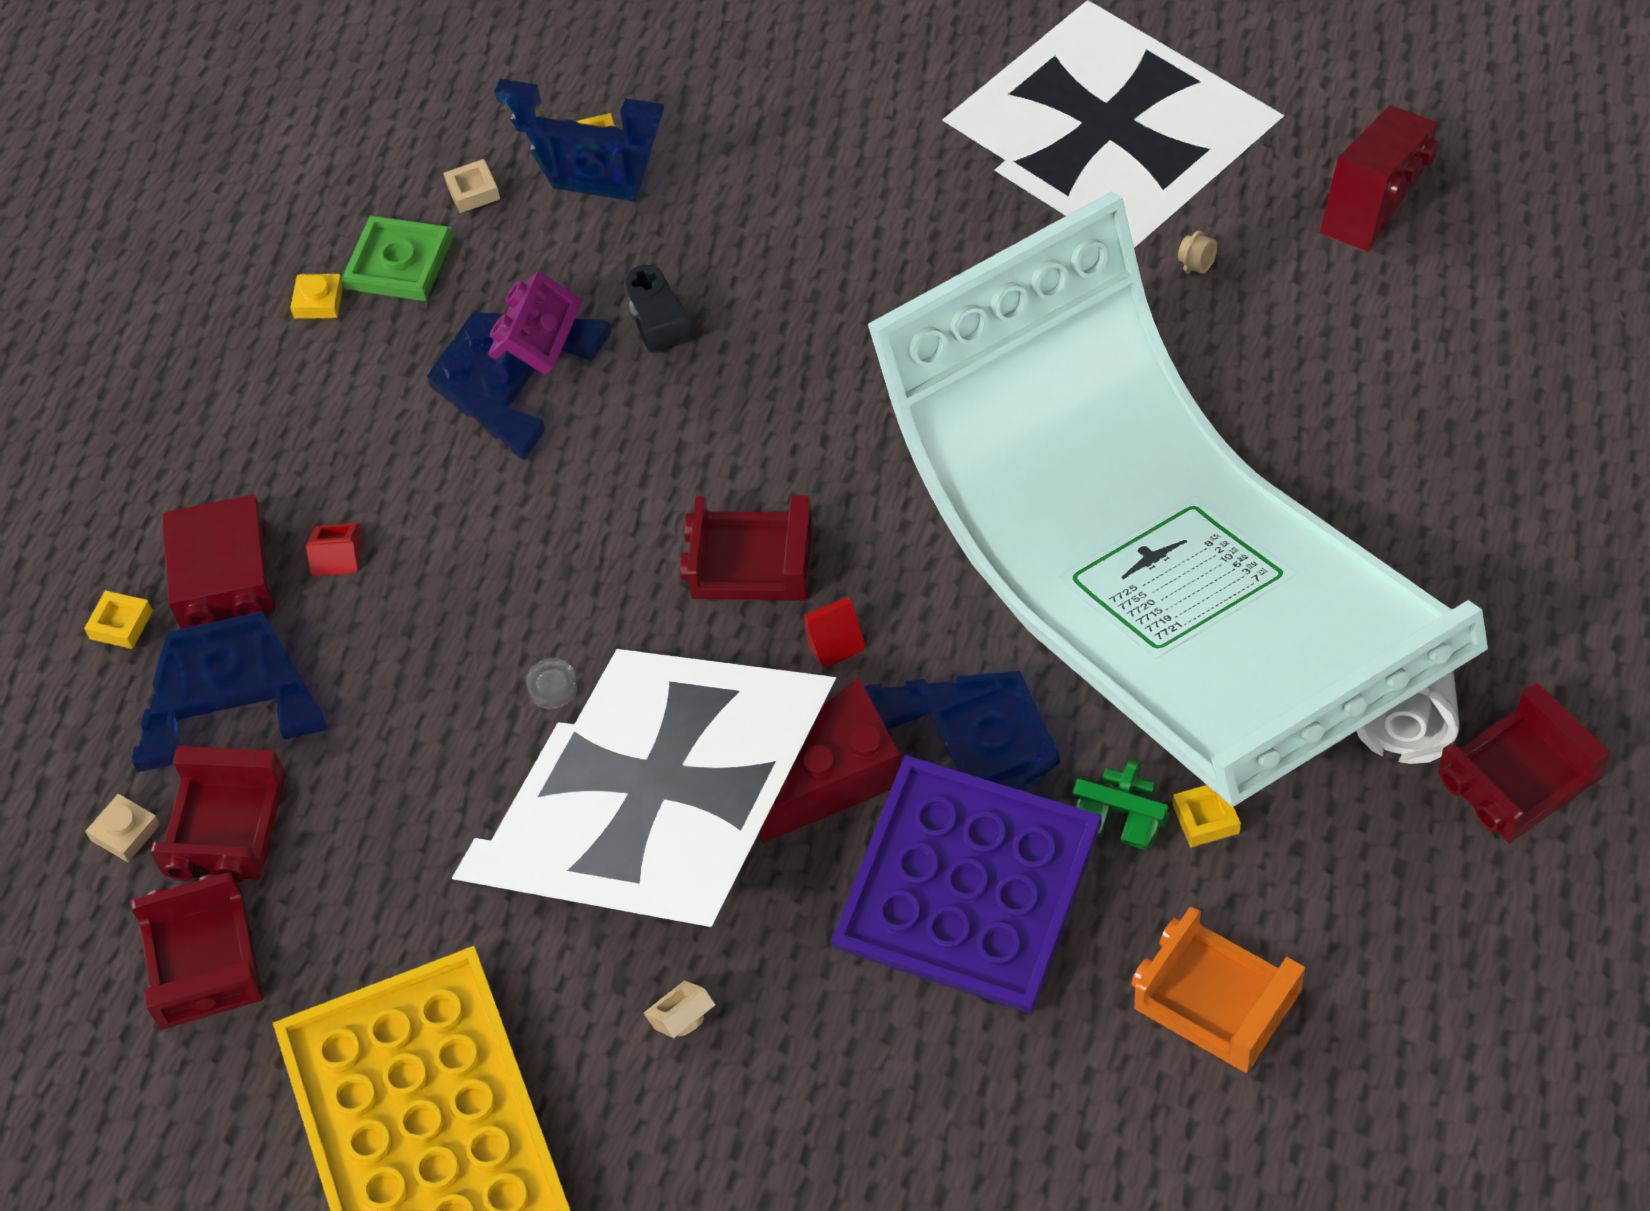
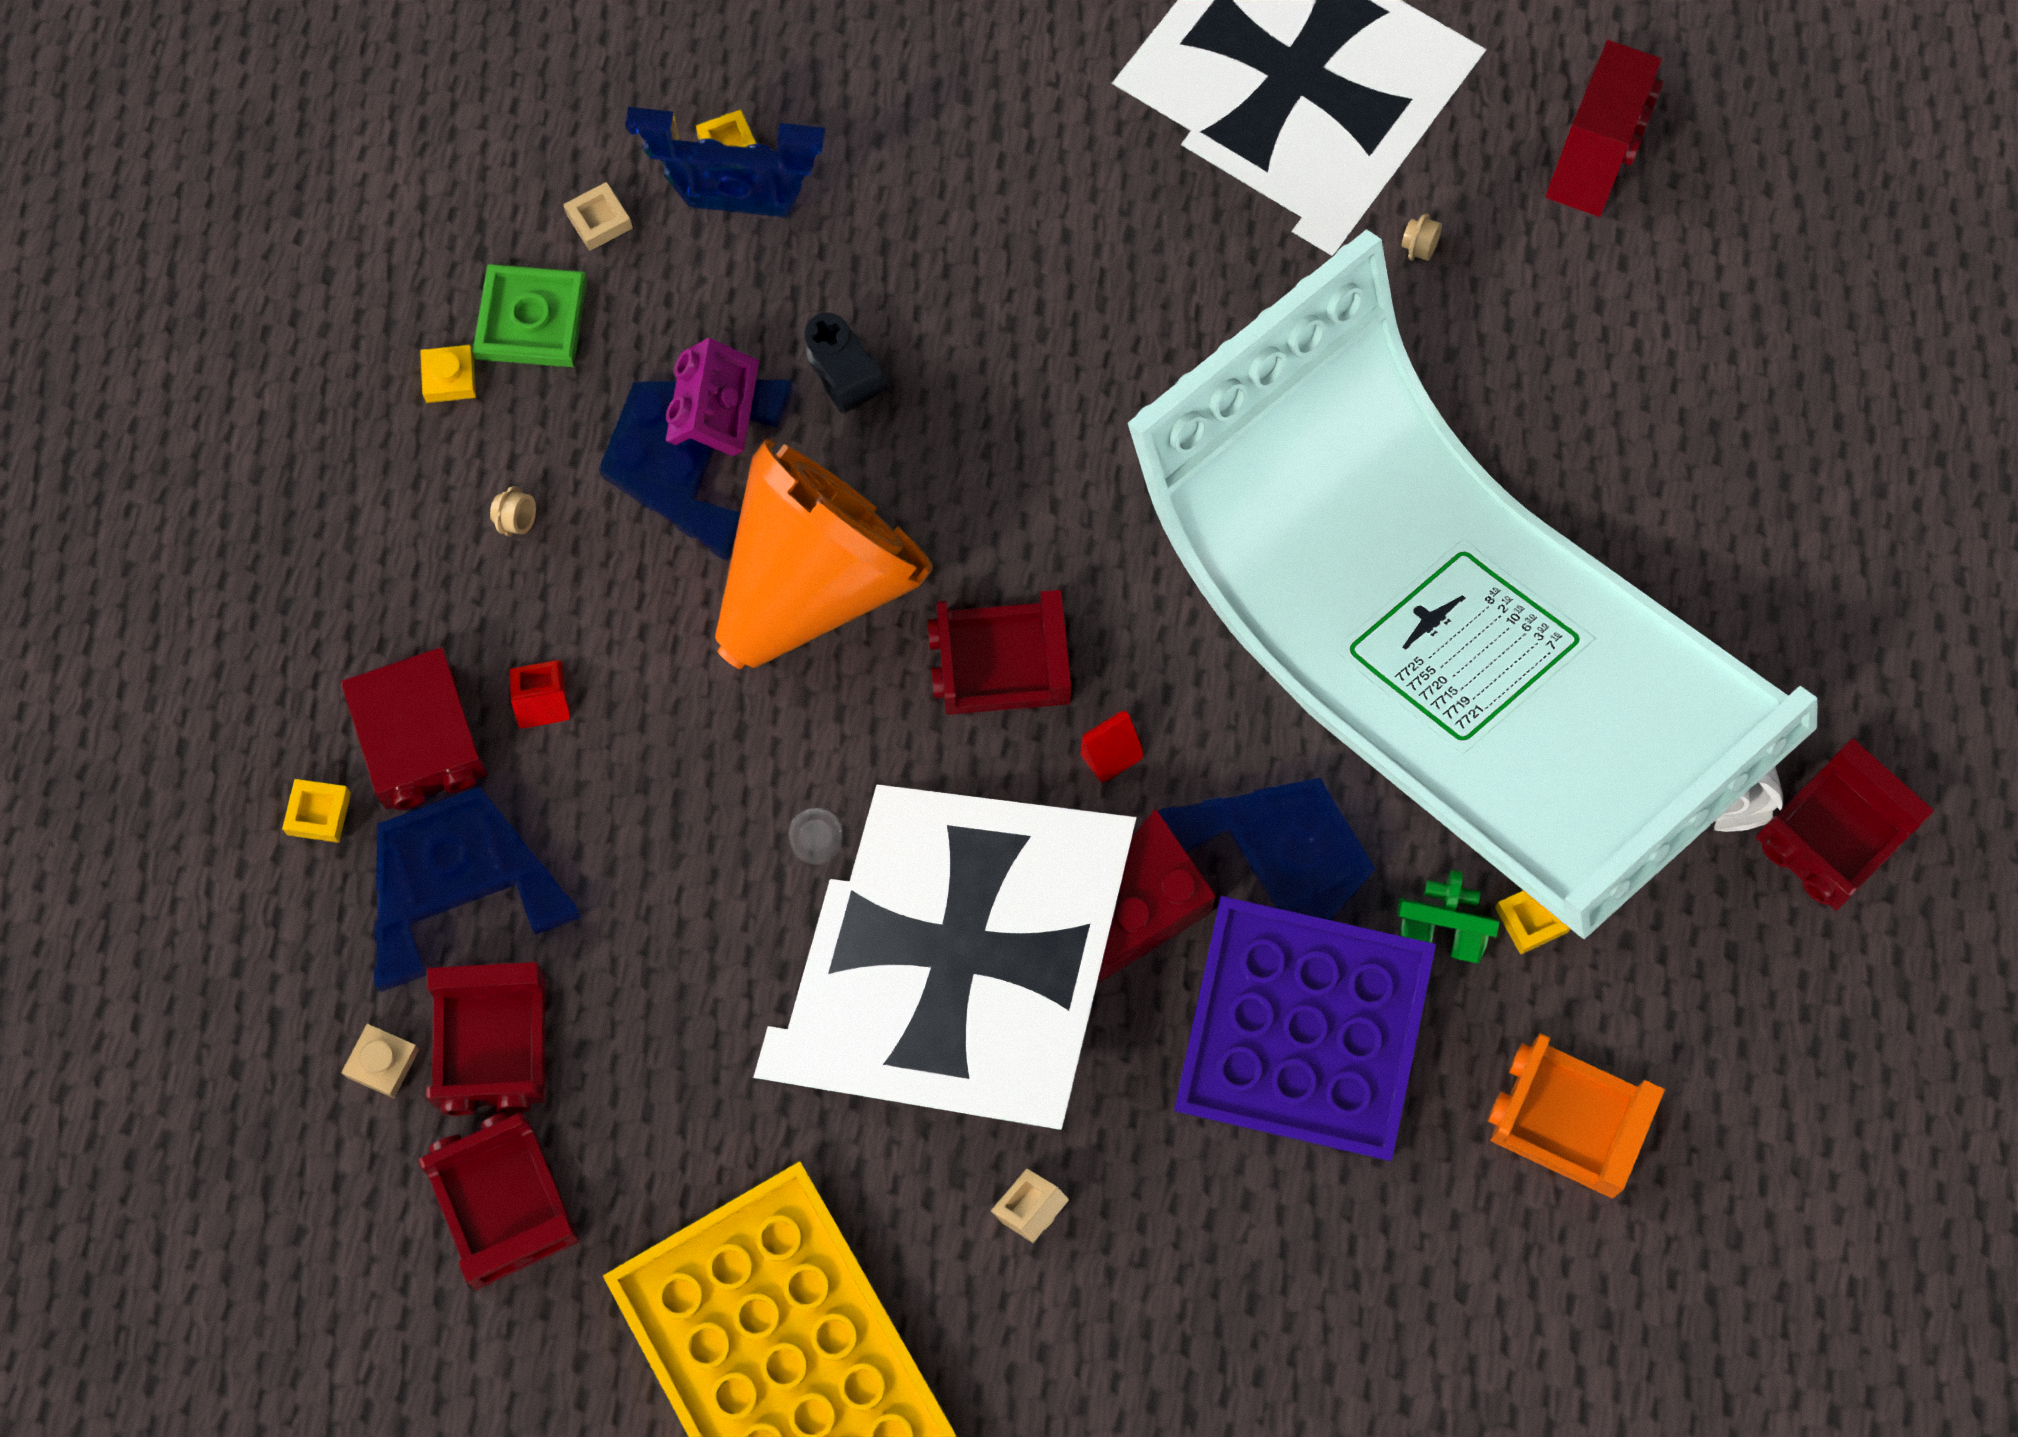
camera: 15 degrees left, 15 degrees up
(345, 403) = (513, 511): none -> tan plate
(582, 450) = (806, 559): none -> orange cone

